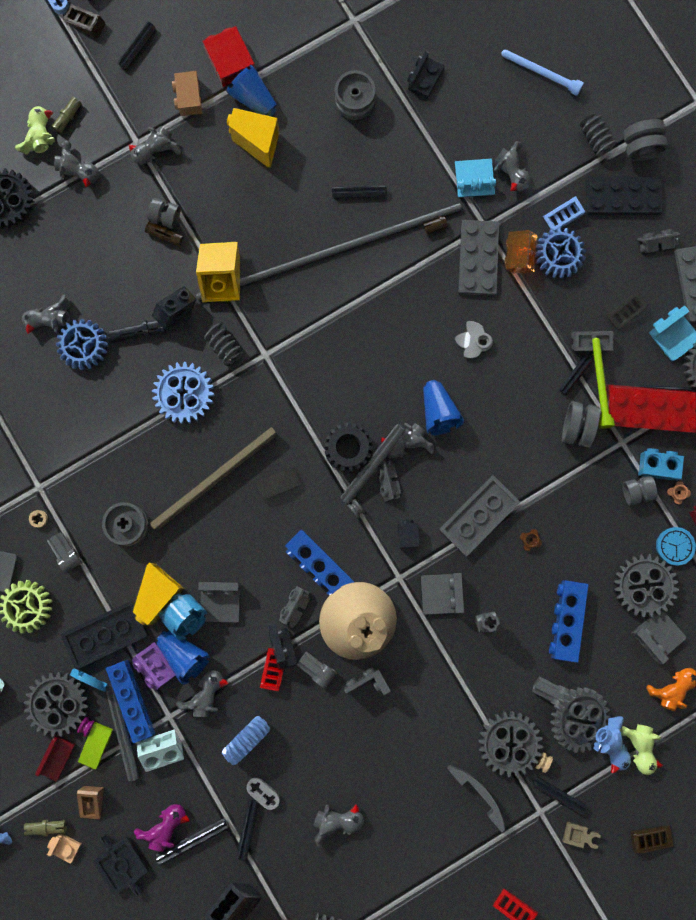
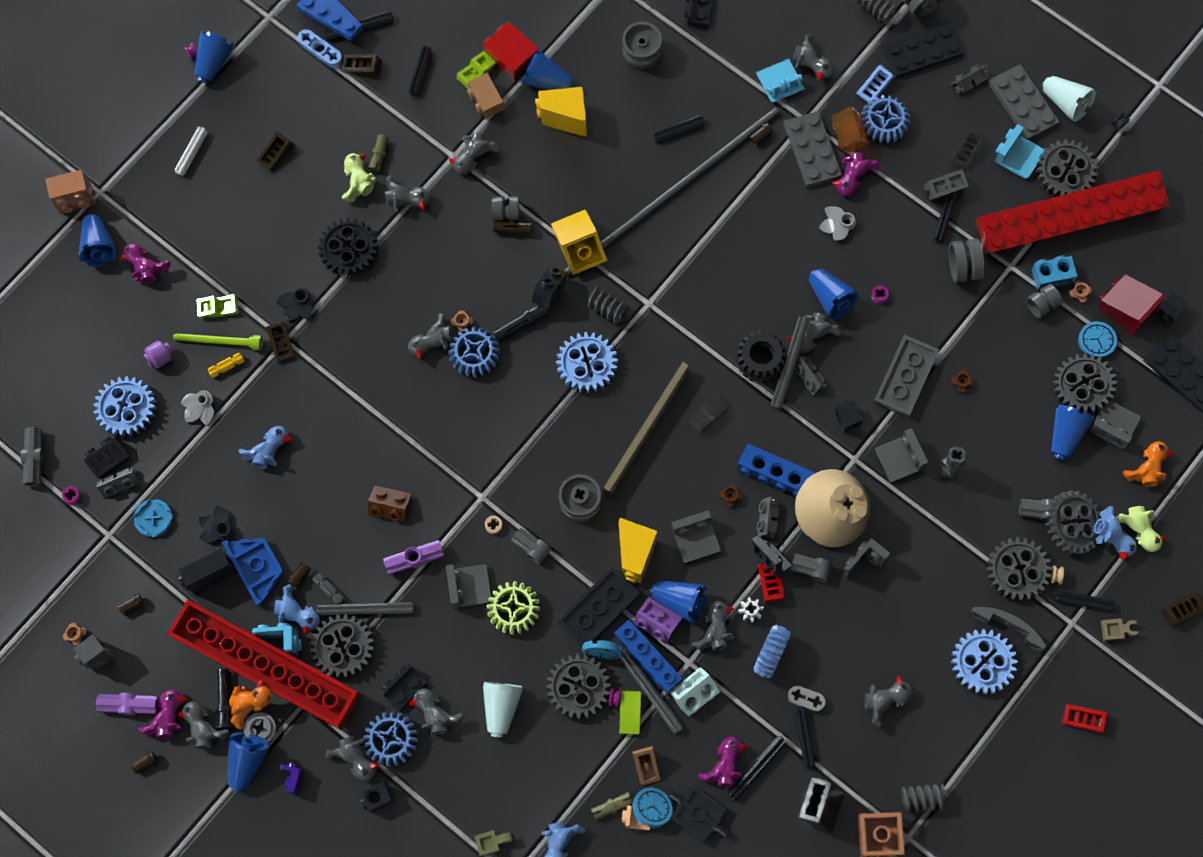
camera: 15 degrees left, 10 degrees down
(55, 758) = (597, 738): dark red panel -> none
(78, 309) = (461, 315): none -> nougat plate
(79, 845) = (652, 807): none -> dark azure tile
(183, 616) = (668, 559): dark azure brick -> none
(194, 61) = (478, 66): none -> lime slope
(239, 693) = (746, 613): none -> white gear
(273, 574) = (730, 490): none -> reddish brown plate
(356, 508) = (789, 409): dark grey bush -> none
(449, 837) = (996, 673): none -> light blue gear
(489, 421) = (880, 289): none -> magenta bush
(511, 292) = (855, 167): none -> magenta animal
(576, 612) = (1025, 410): blue brick -> none
(606, 419) = (988, 247): lime piece -> none
(611, 628) = (1068, 430): none -> blue cone

